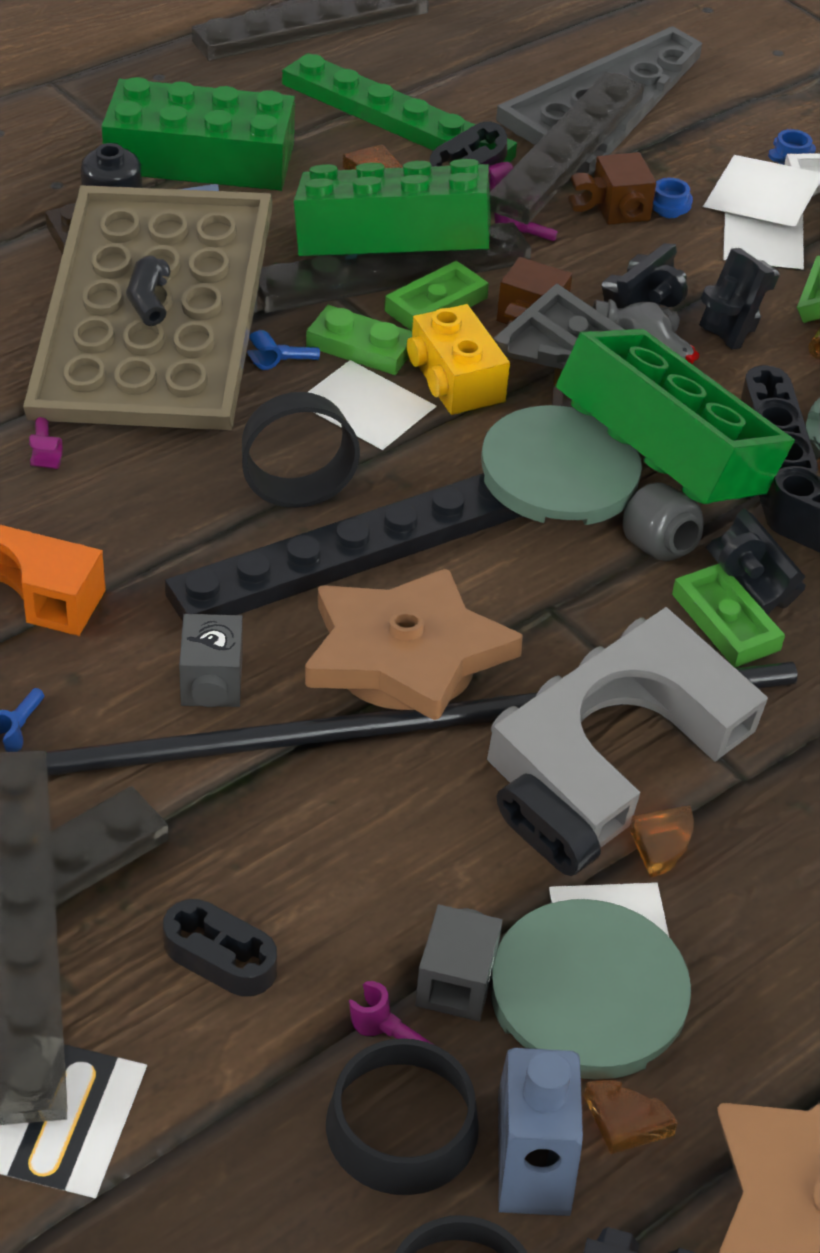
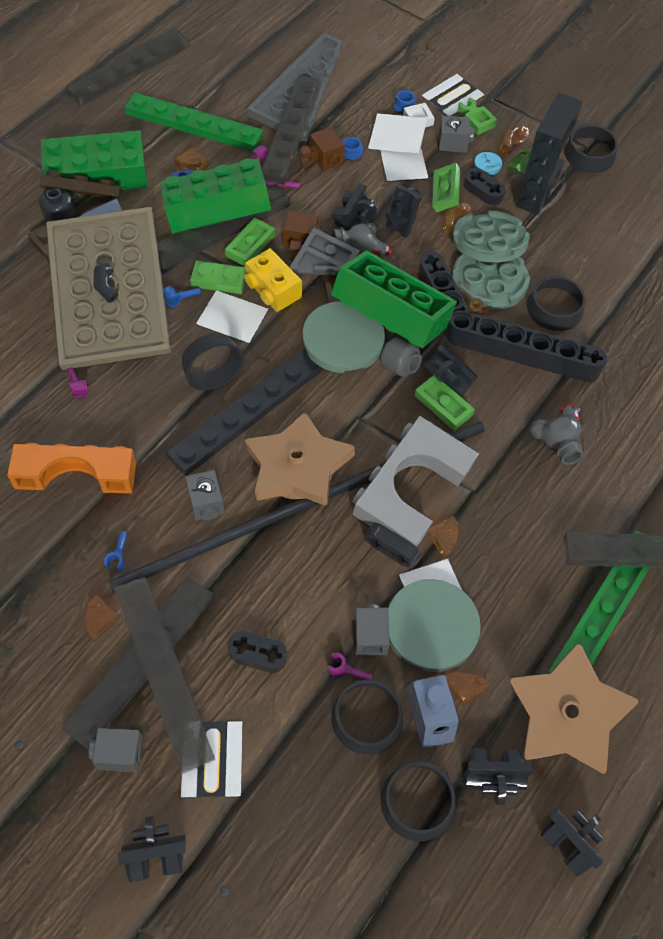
camera: 15 degrees left, 15 degrees up
(161, 154) = (80, 185): none -> dark brown plate
(468, 146) = (237, 142): black beam -> none

